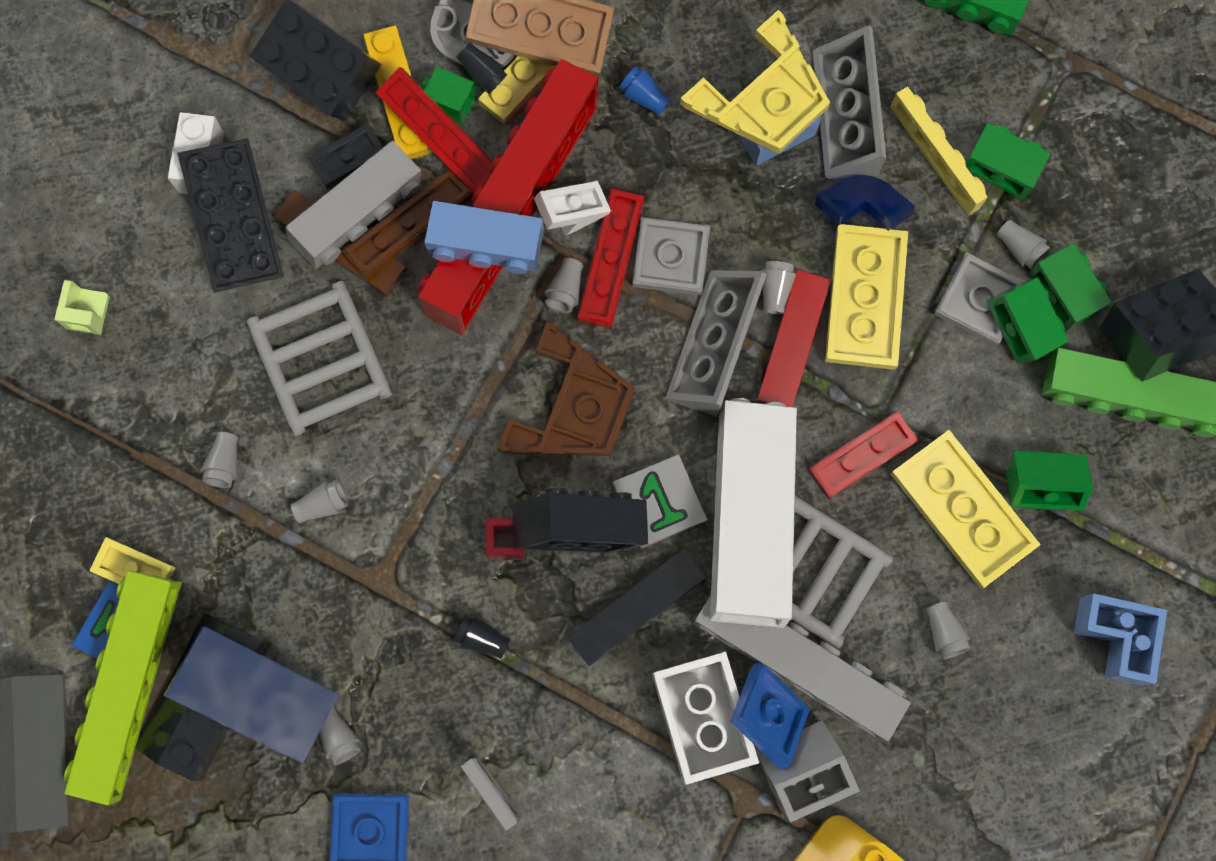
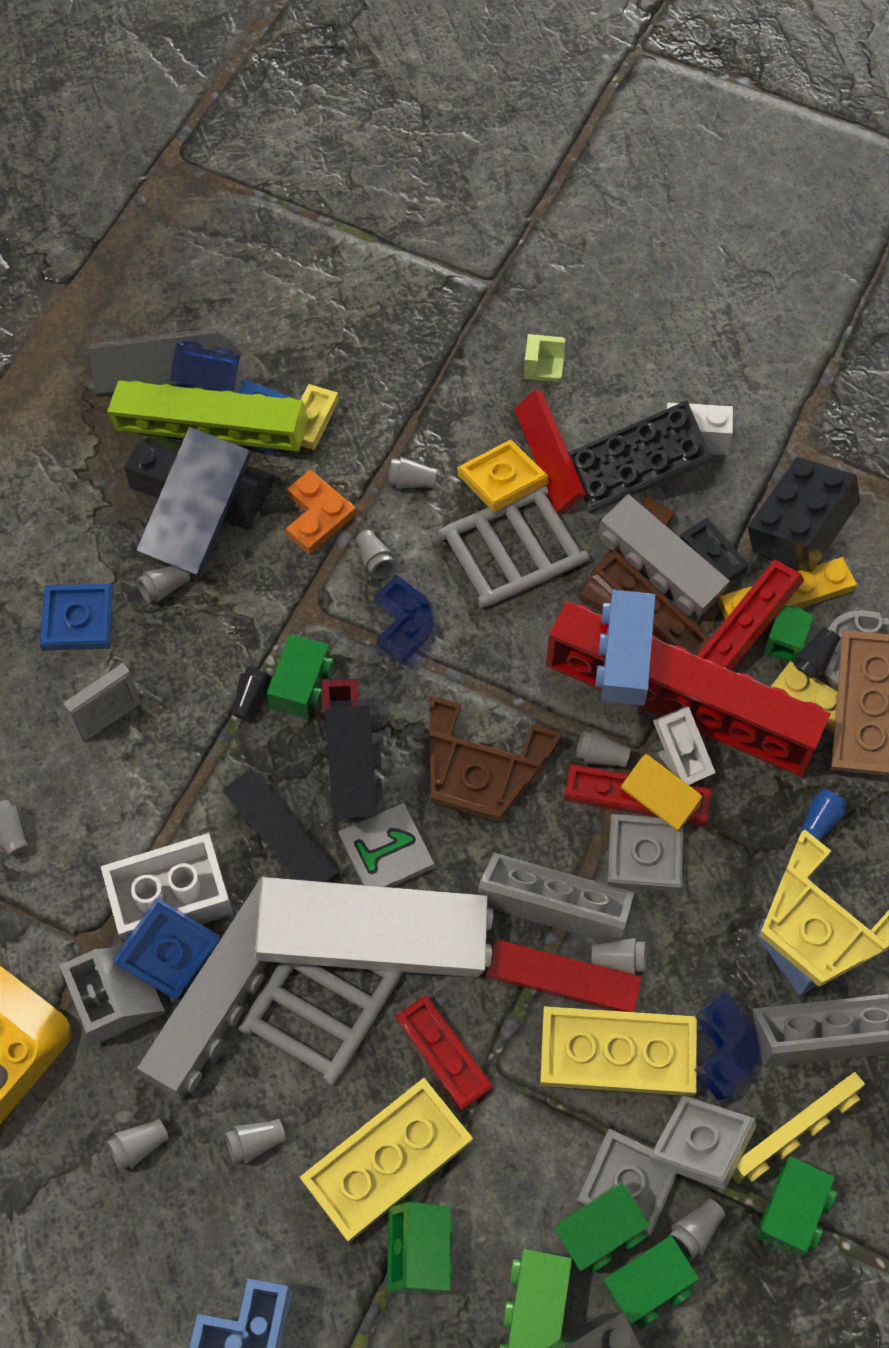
camera: 90 degrees right, 15 degrees down
(62, 690) = (204, 367): none -> clear blue brick
(206, 310) = (549, 451): none -> red tile
(232, 362) = (502, 475): none -> yellow plate
(254, 556) = (324, 512): none -> orange plate
(399, 464) = (412, 618): none -> clear blue plate
(465, 583) = (299, 677): none -> green brick
(617, 231) = (662, 792): none -> yellow slope
(950, 743) = (136, 1143): none -> light grey cone
(954, 228) = (703, 1142): none -> light grey tile

